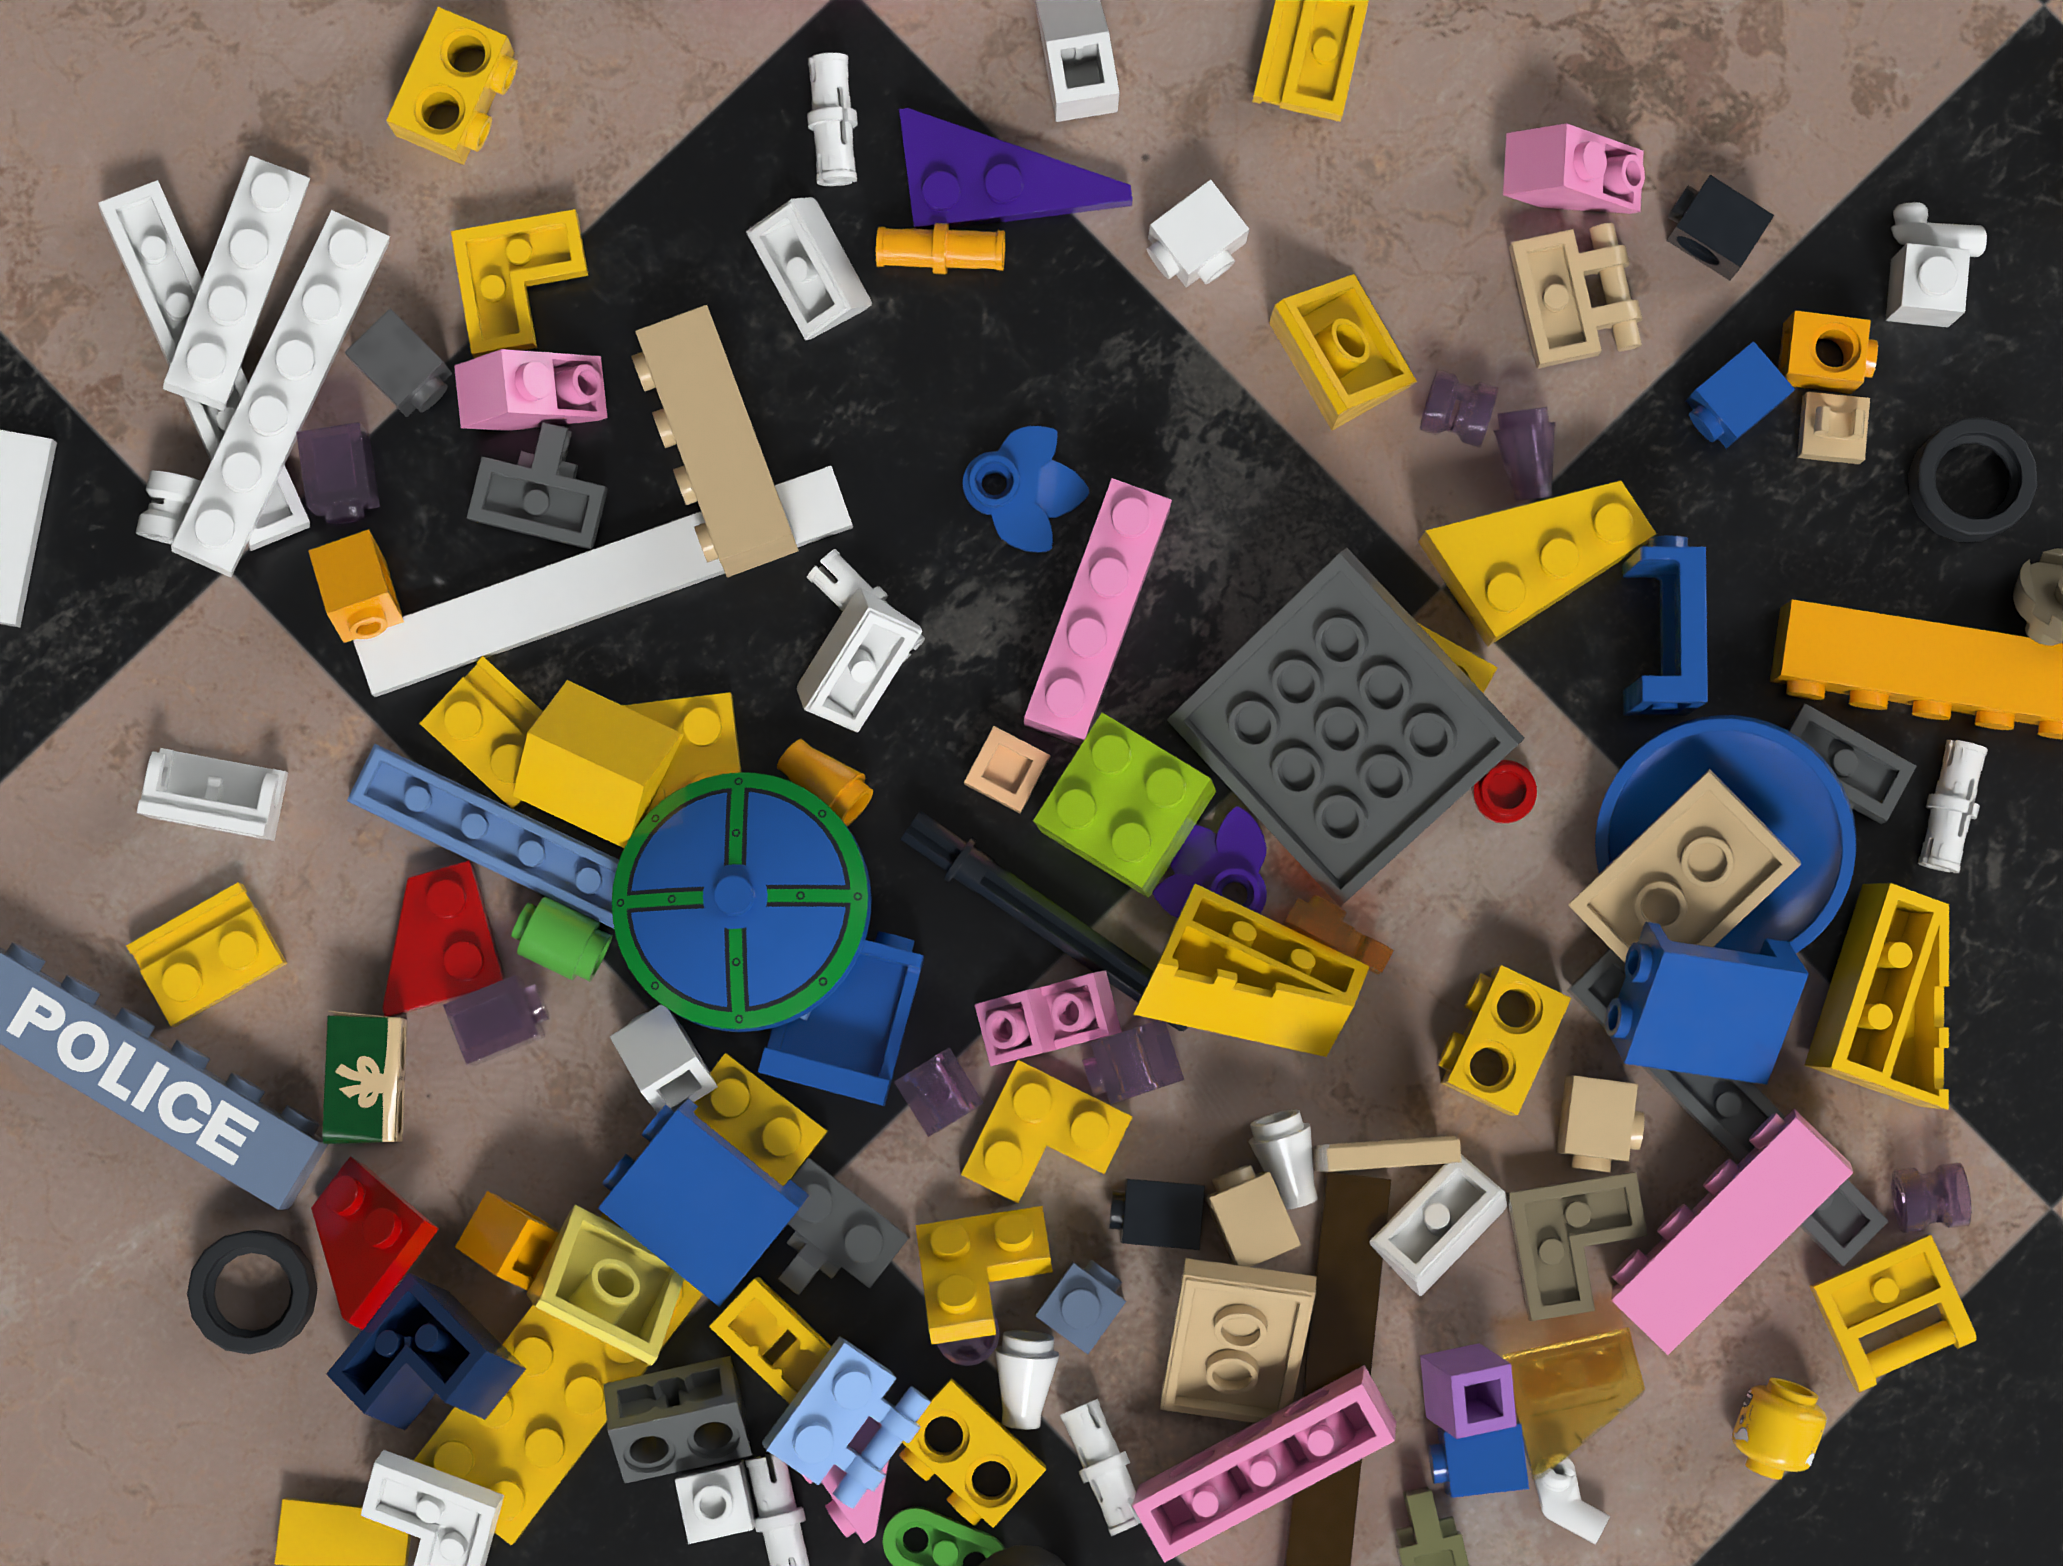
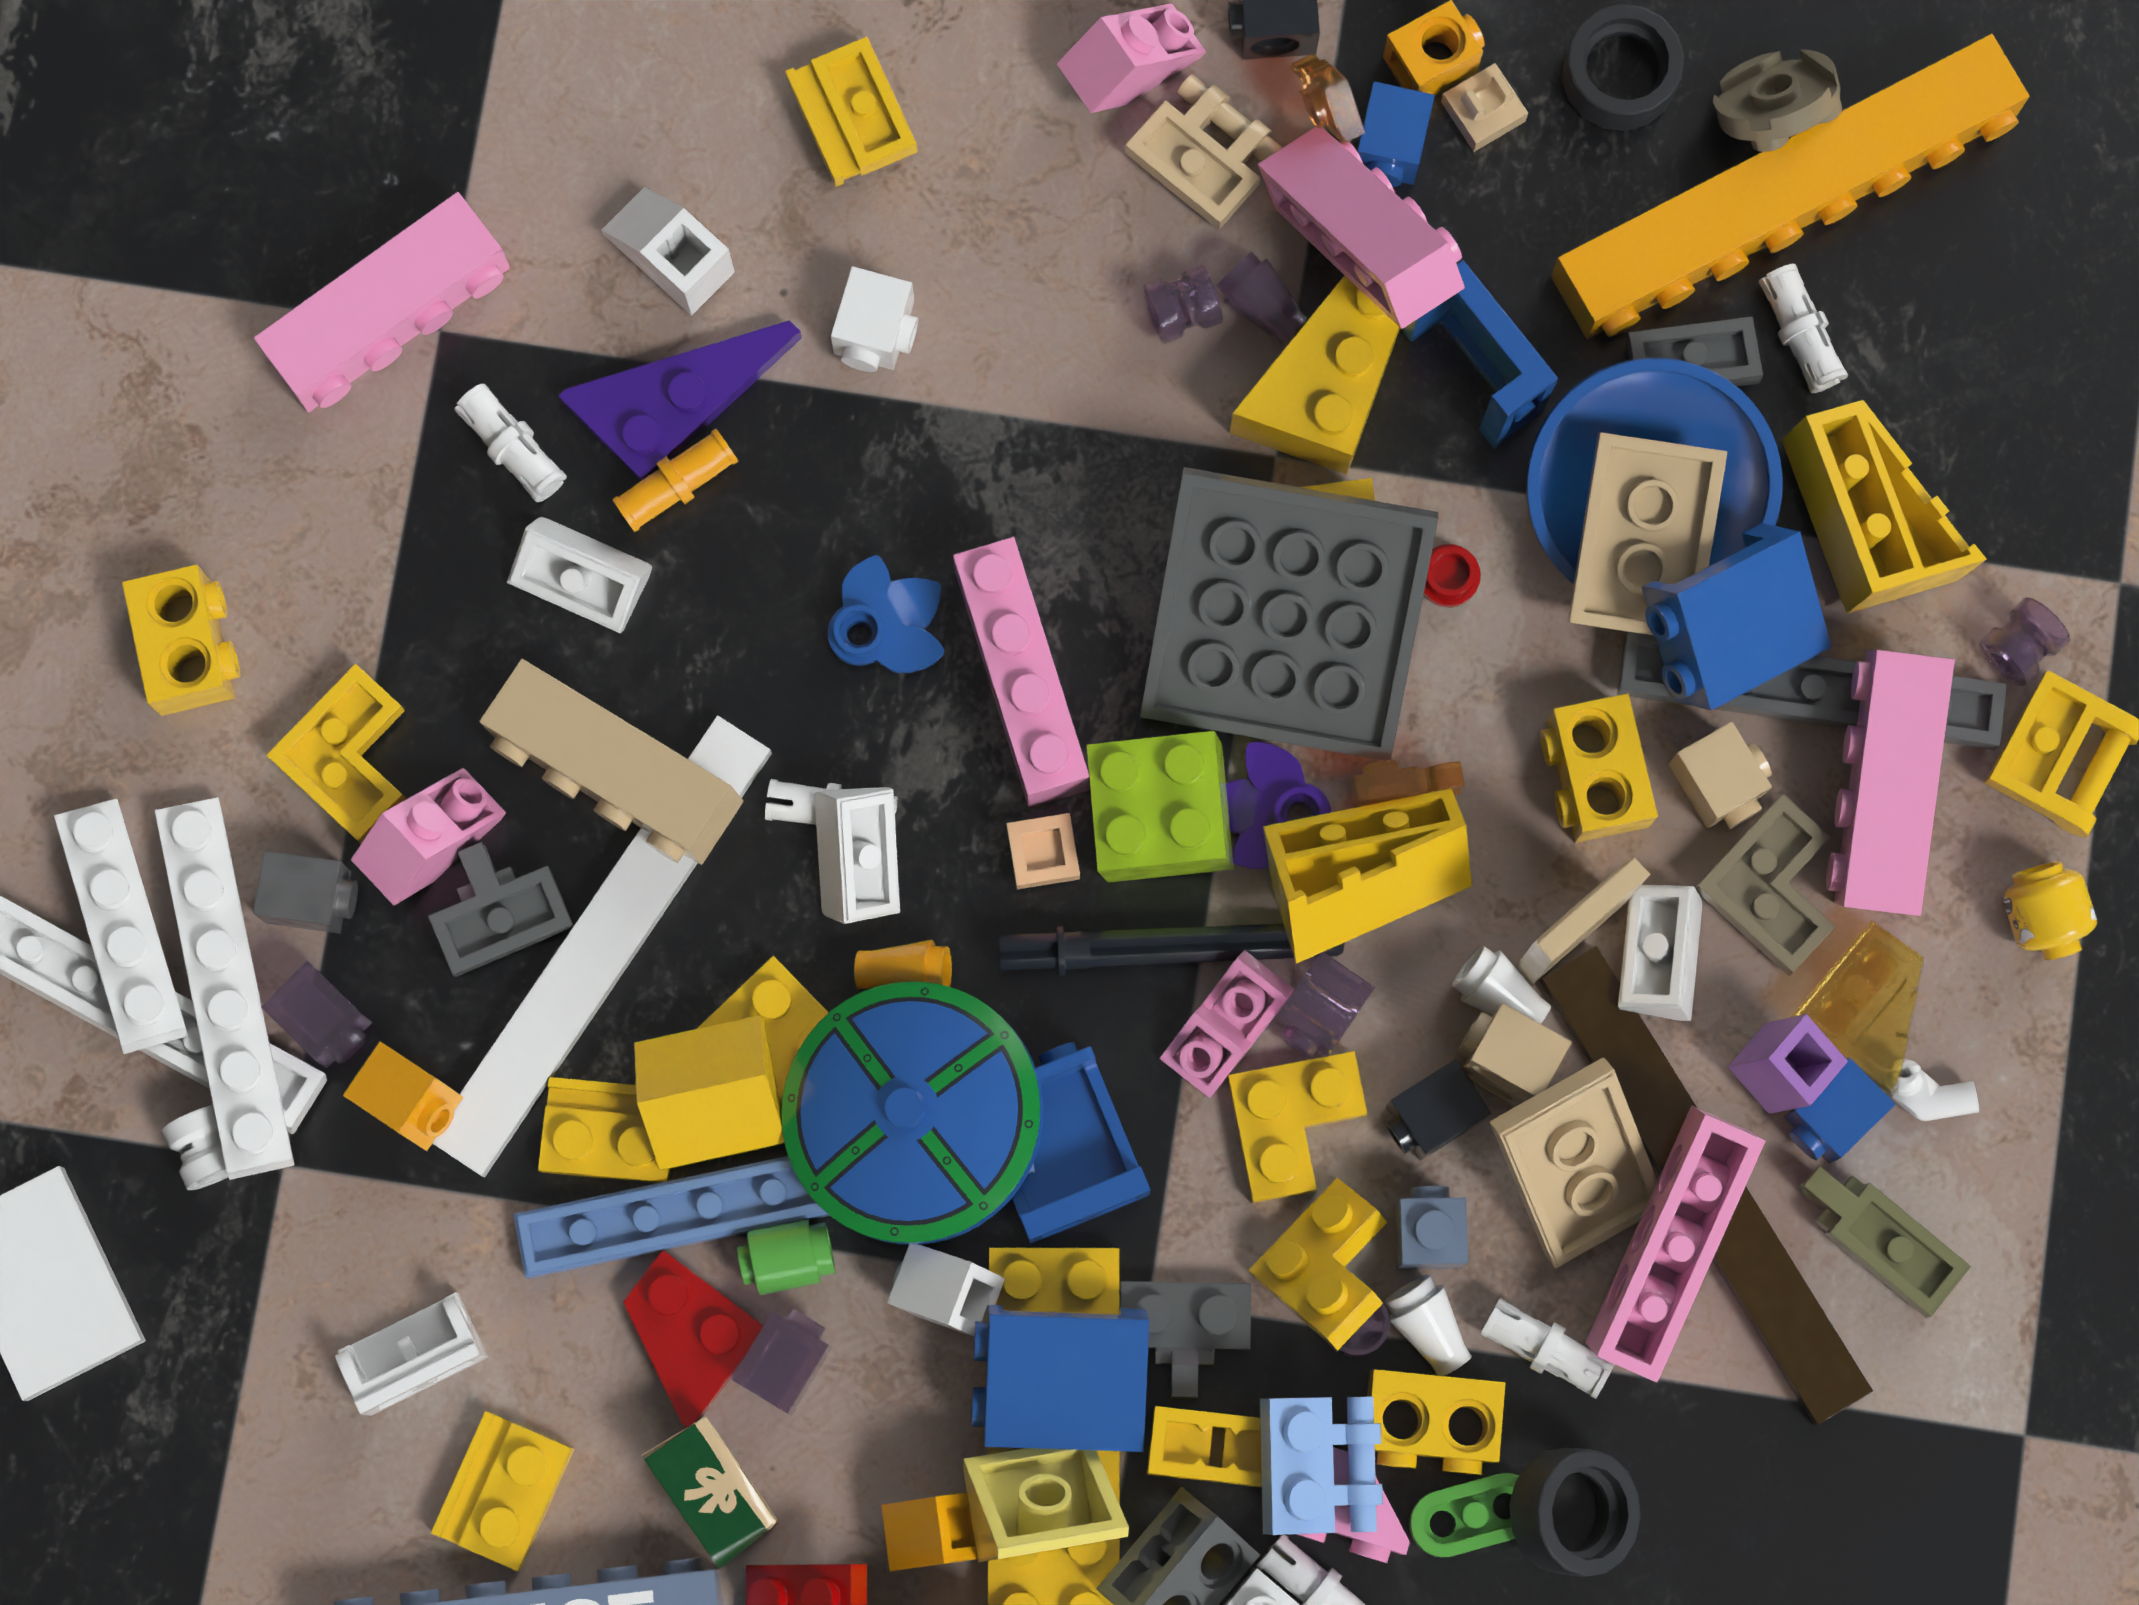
camera: 35 degrees left, 5 degrees down
(939, 1092) = (1186, 1147): clear purple brick -> none
(1340, 349) = (1053, 328): yellow slope -> none
(1648, 456) = (1363, 225): none -> bright pink brick
(1705, 326) = (1328, 98): none -> clear orange plate

